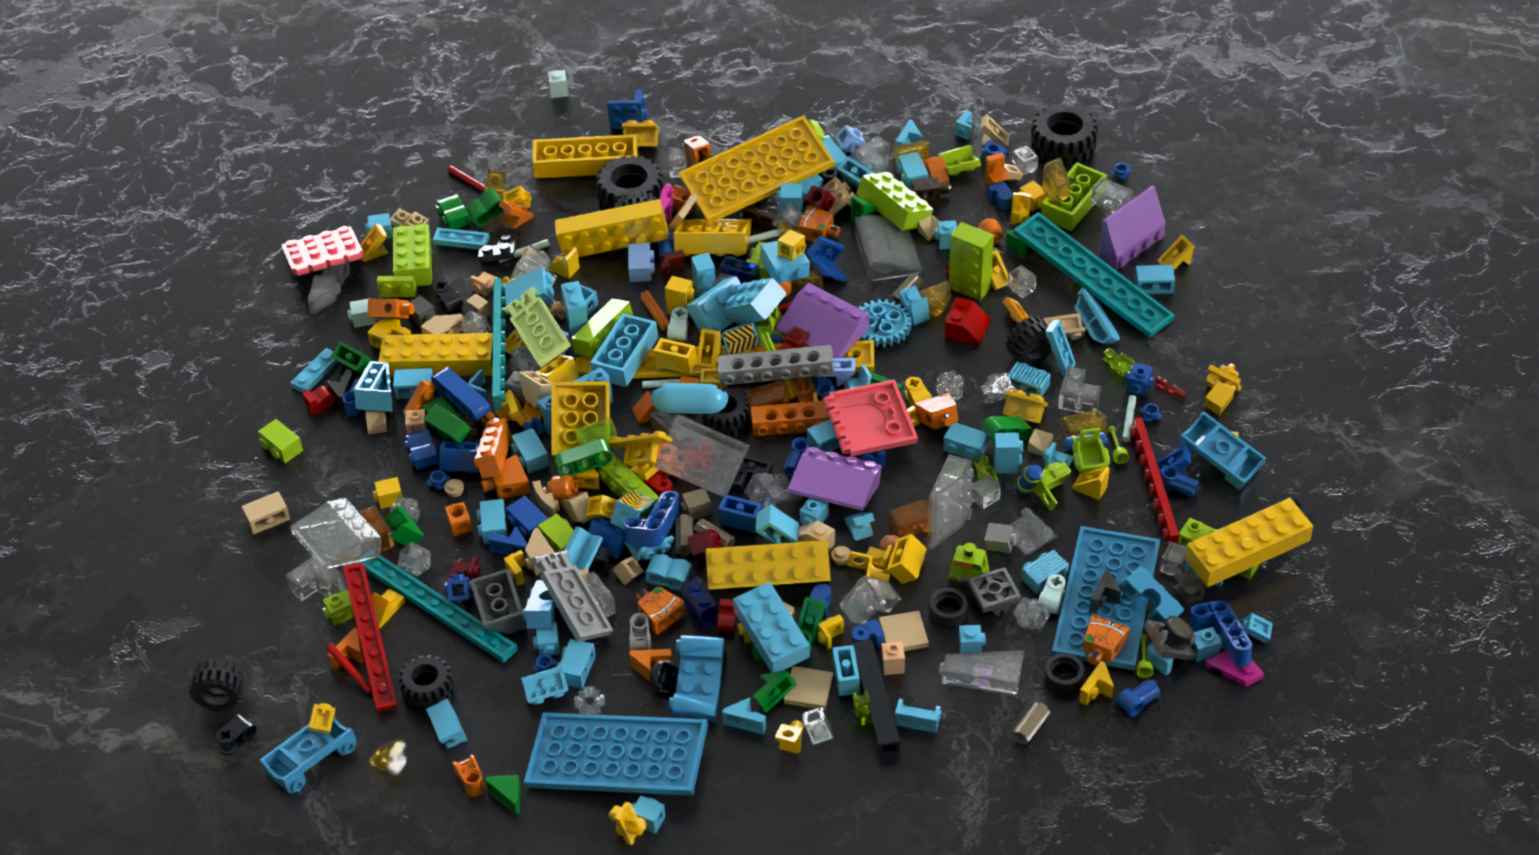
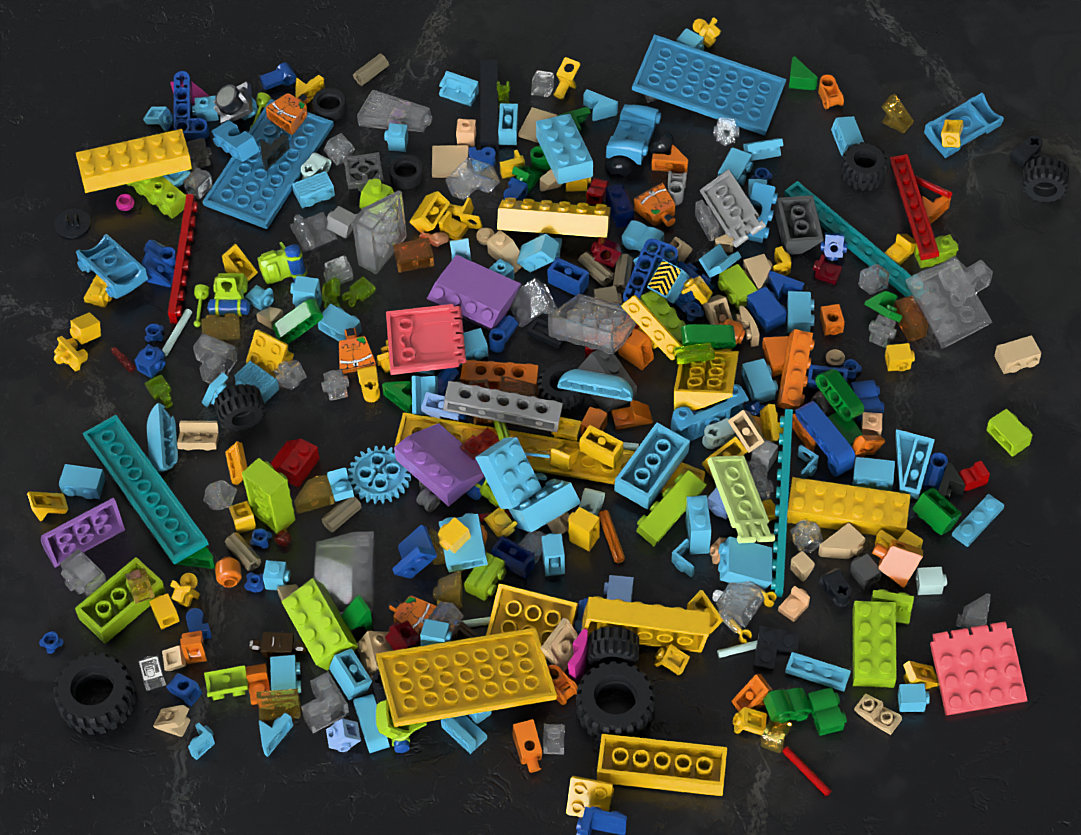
camera: 170 degrees left, 10 degrees up
(672, 261) = (580, 592): clear red bracket -> none

